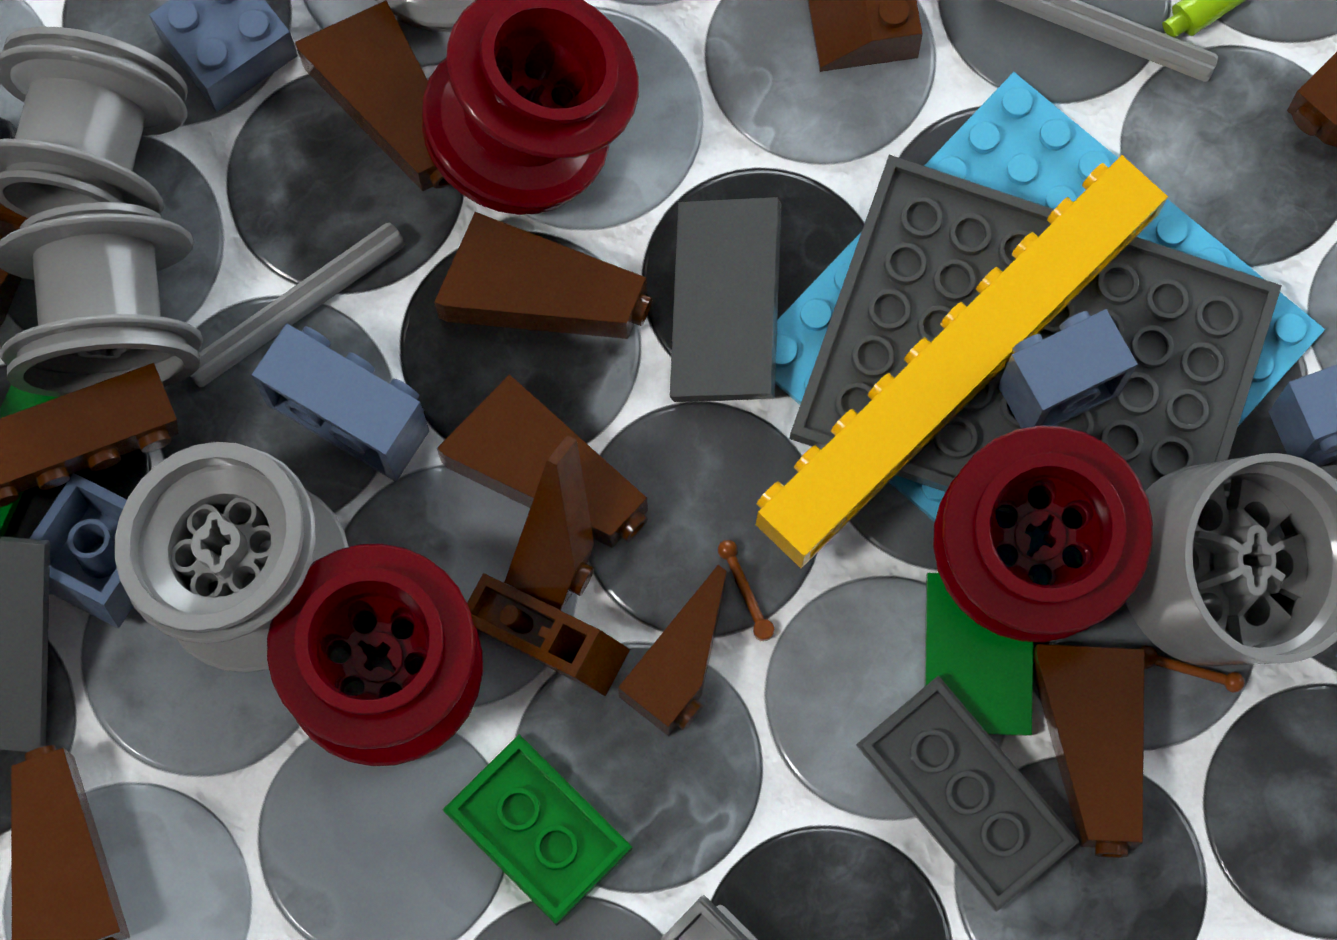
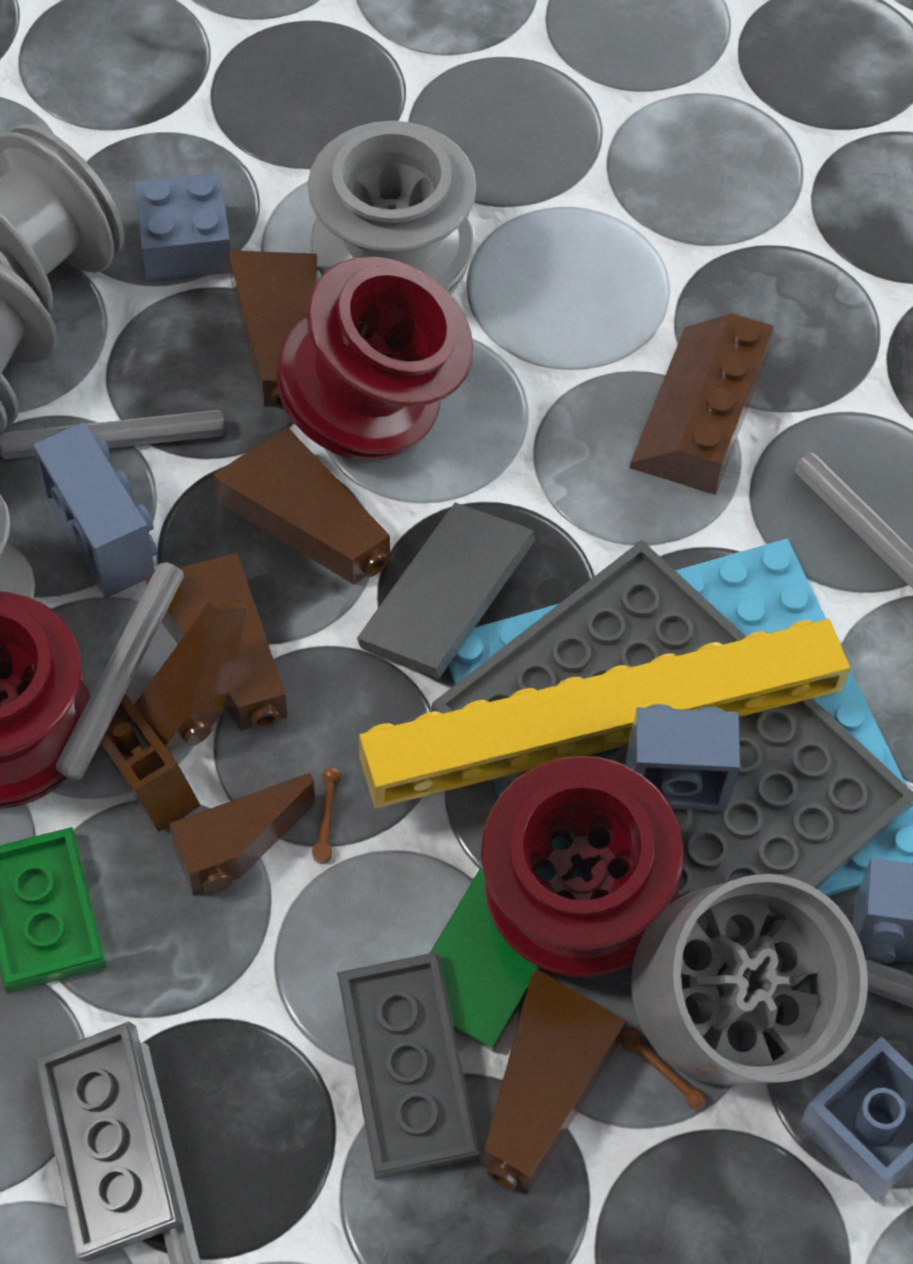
camera: 25 degrees right, 15 degrees down
(475, 553) = (119, 671): none -> light grey axle

